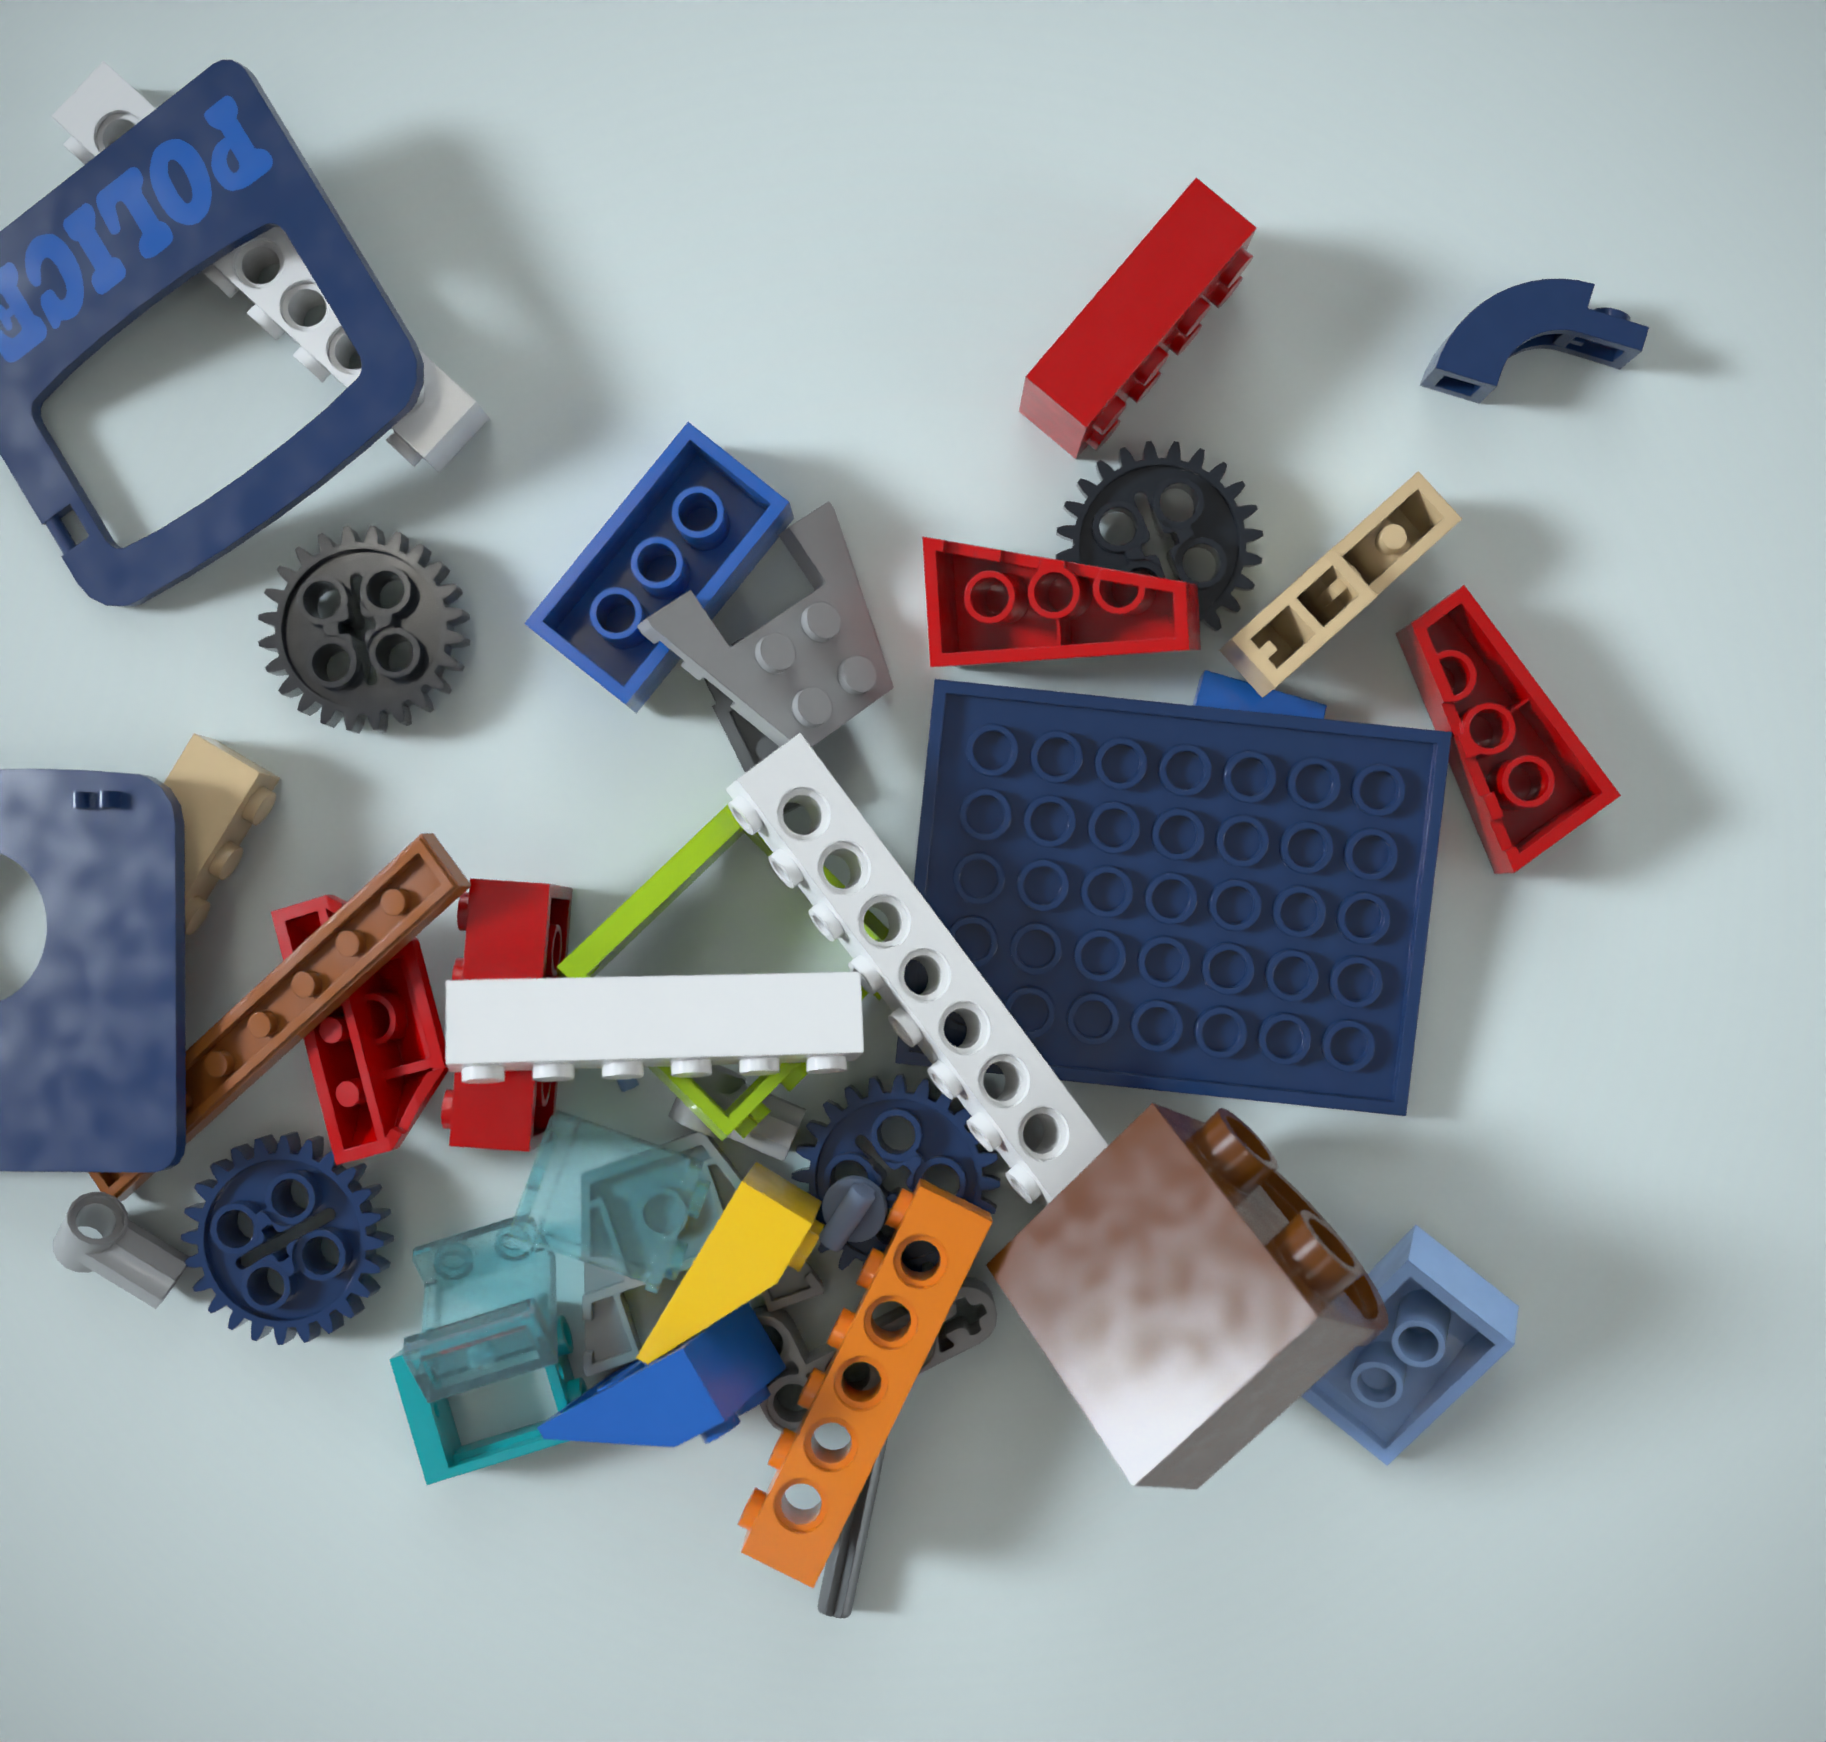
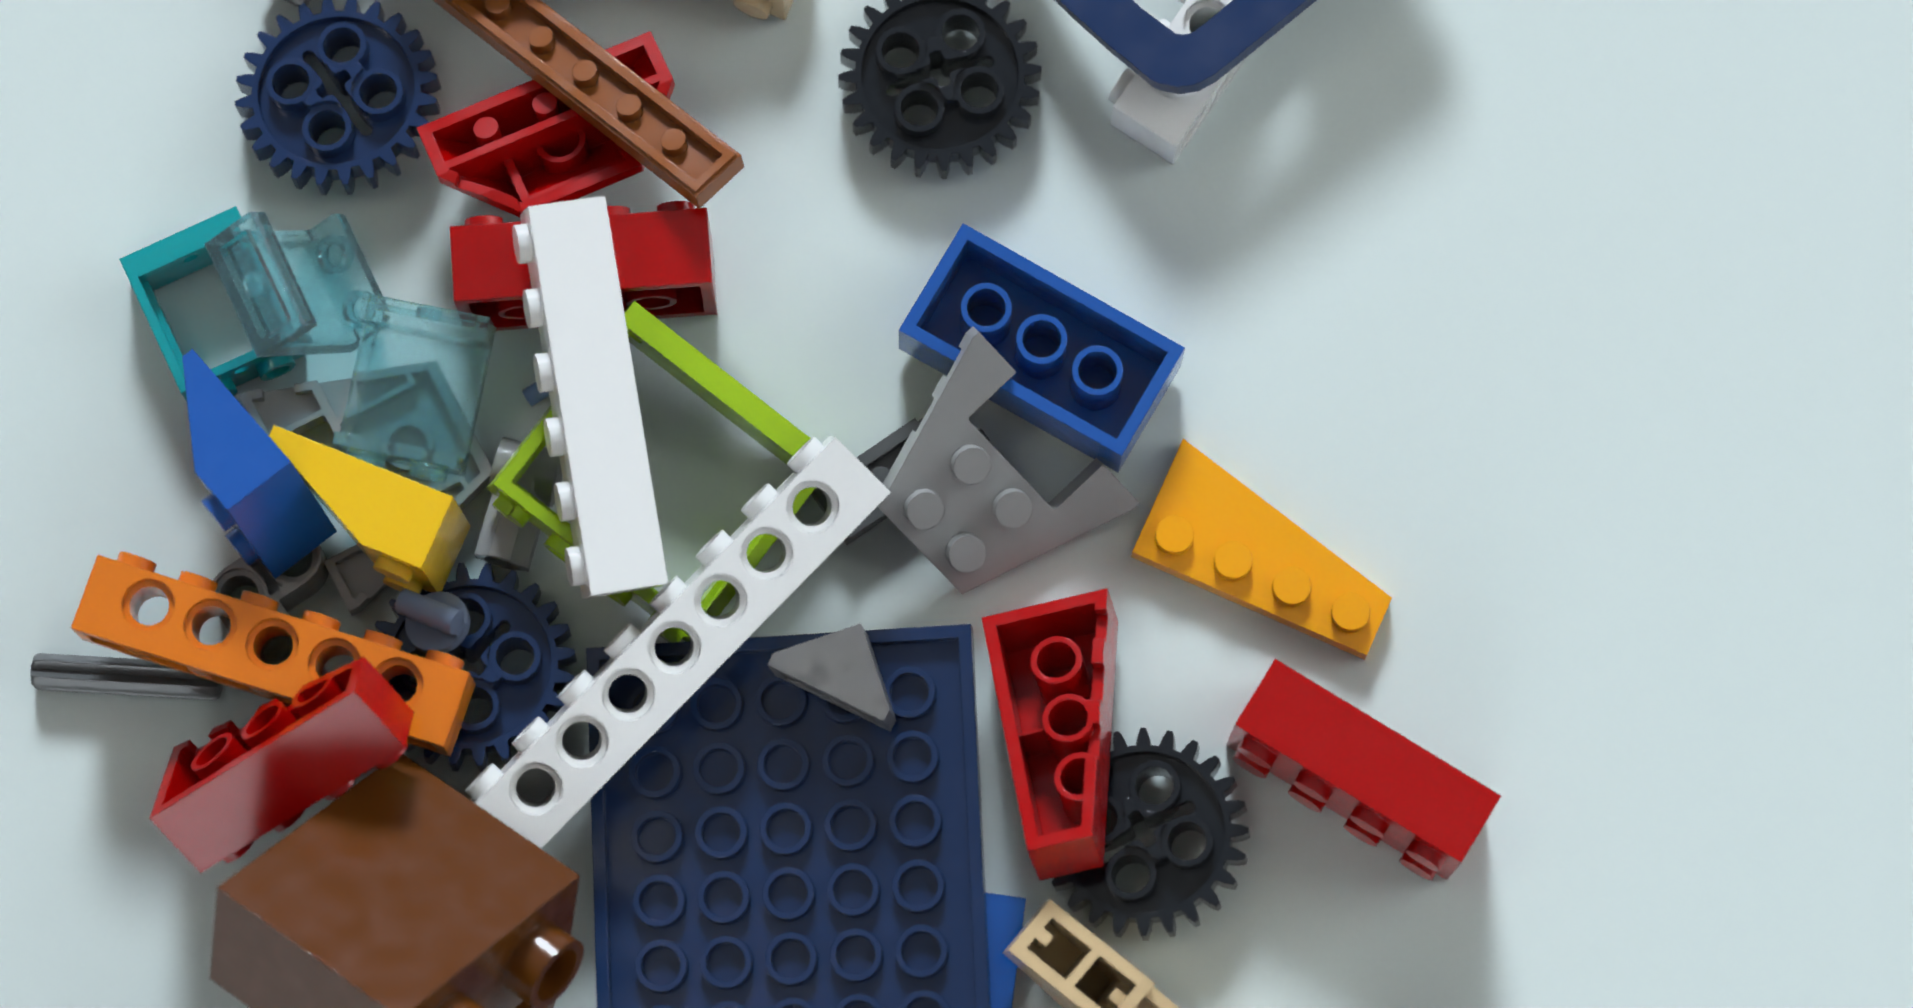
camera: 75 degrees right, 10 degrees down
(888, 409) = (1248, 552): none -> light orange wing
(969, 811) = (840, 671): none -> flat silver slope
(985, 1392) = (279, 763): none -> red wedge

